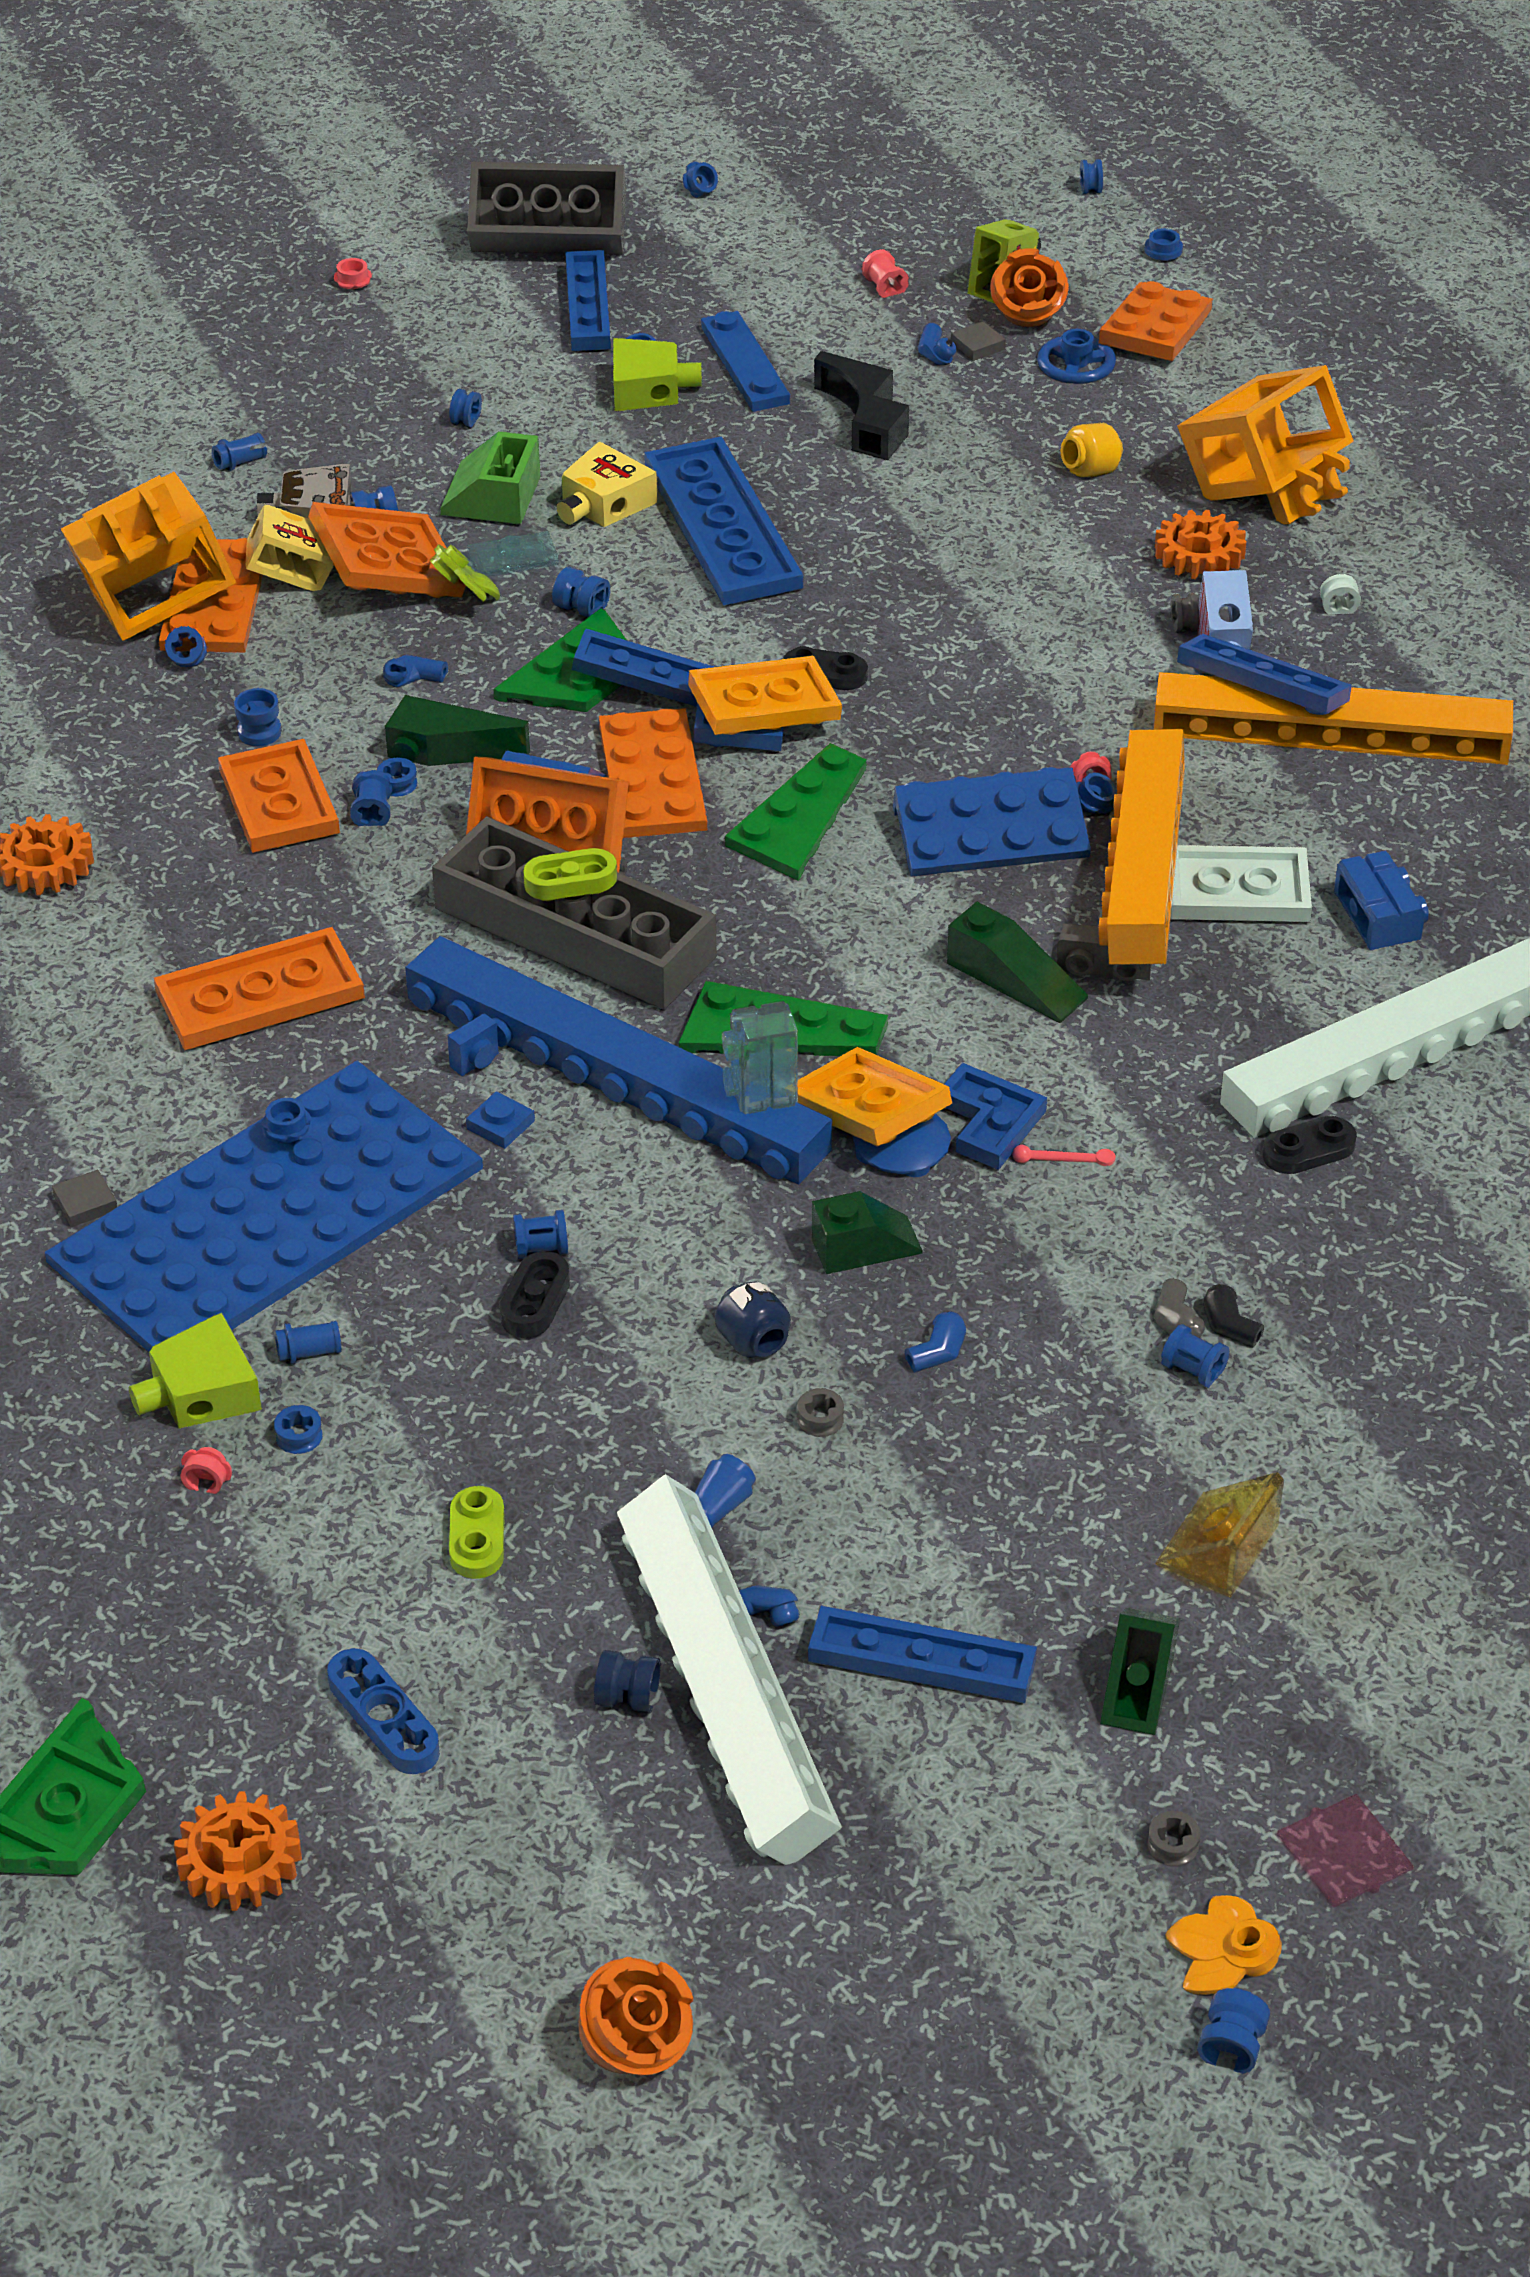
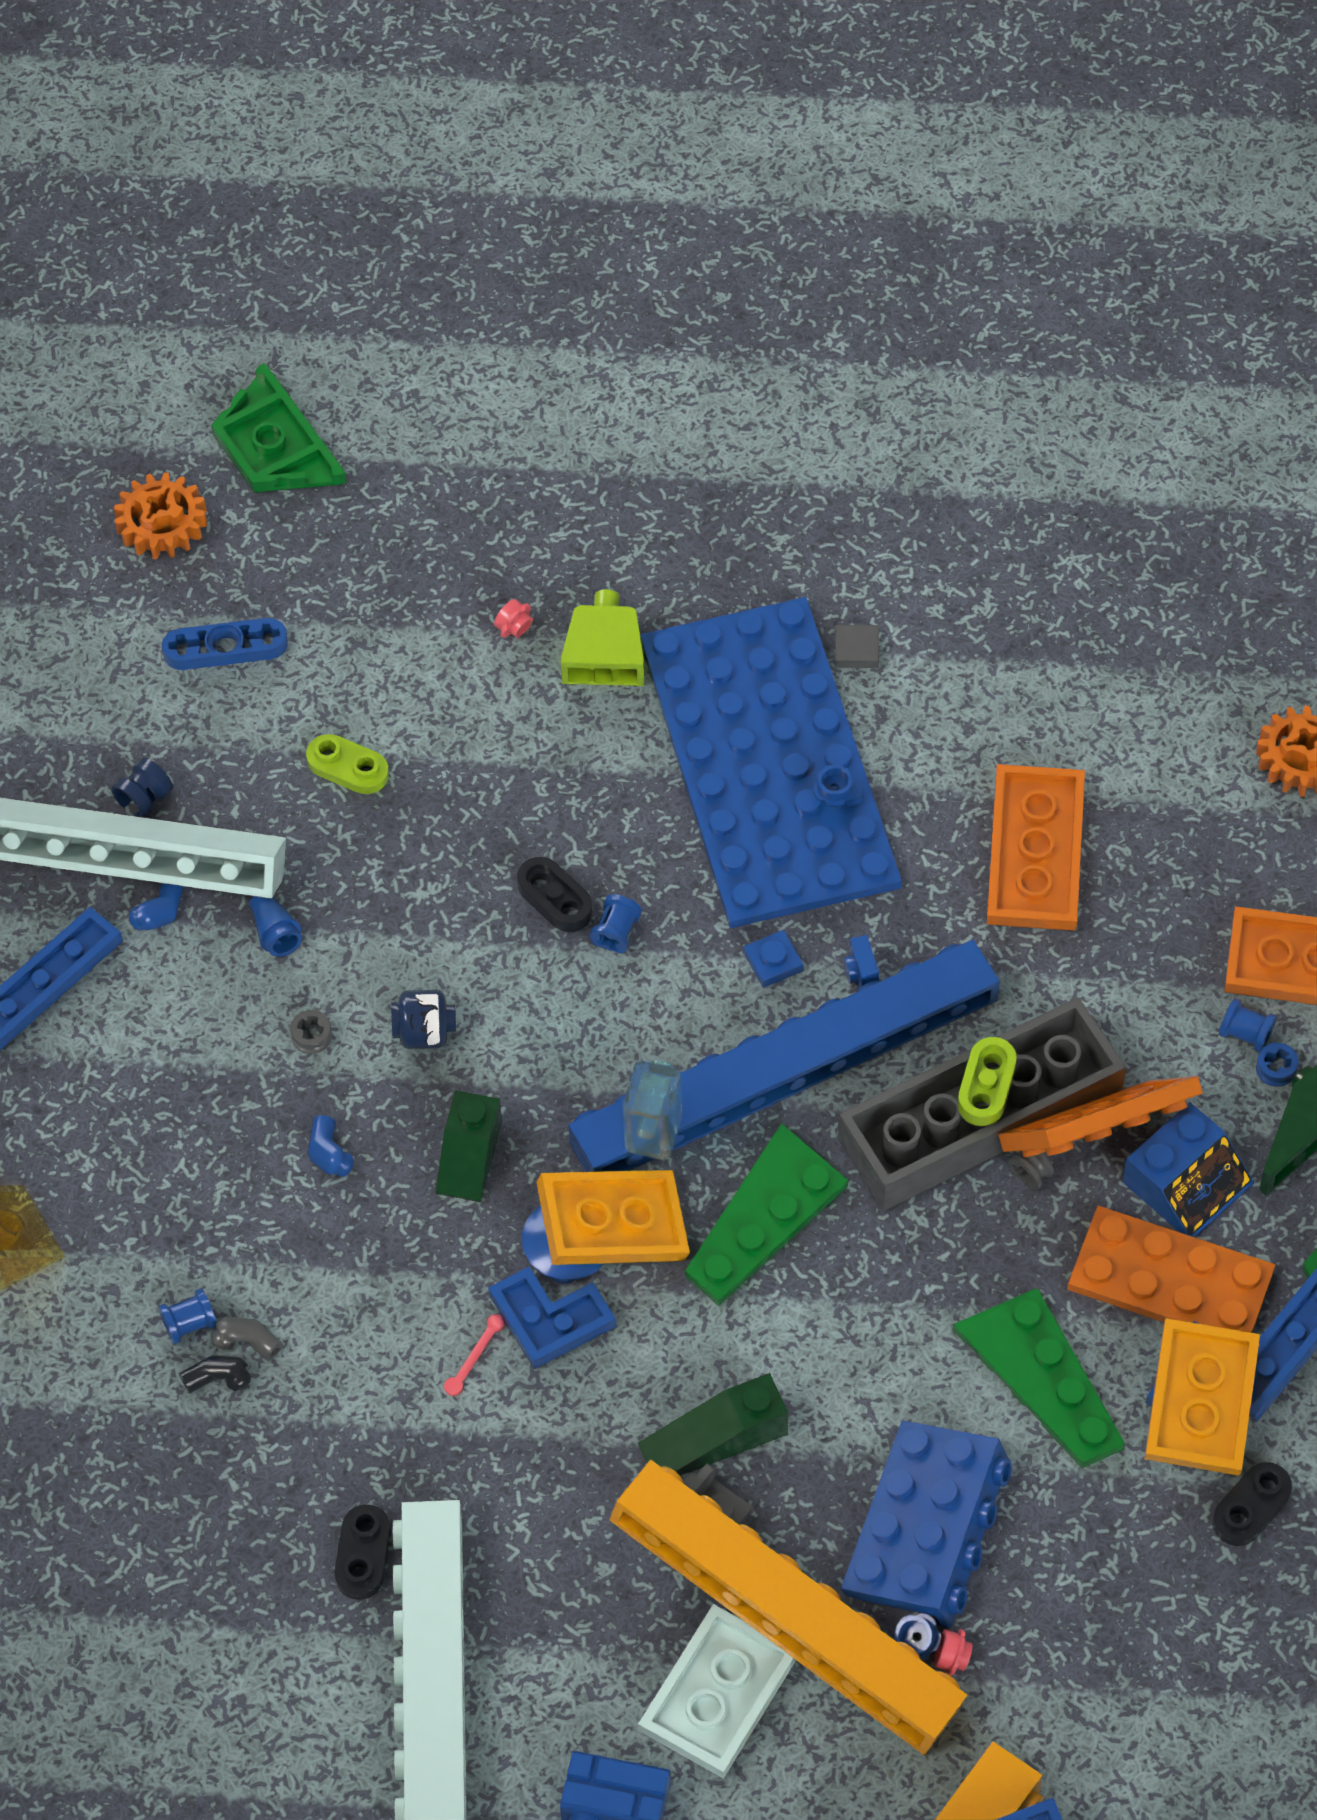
camera: 120 degrees right, 15 degrees up
(298, 1415) = (510, 684): blue bush -> none
(307, 1341) = (606, 719): blue pin -> none

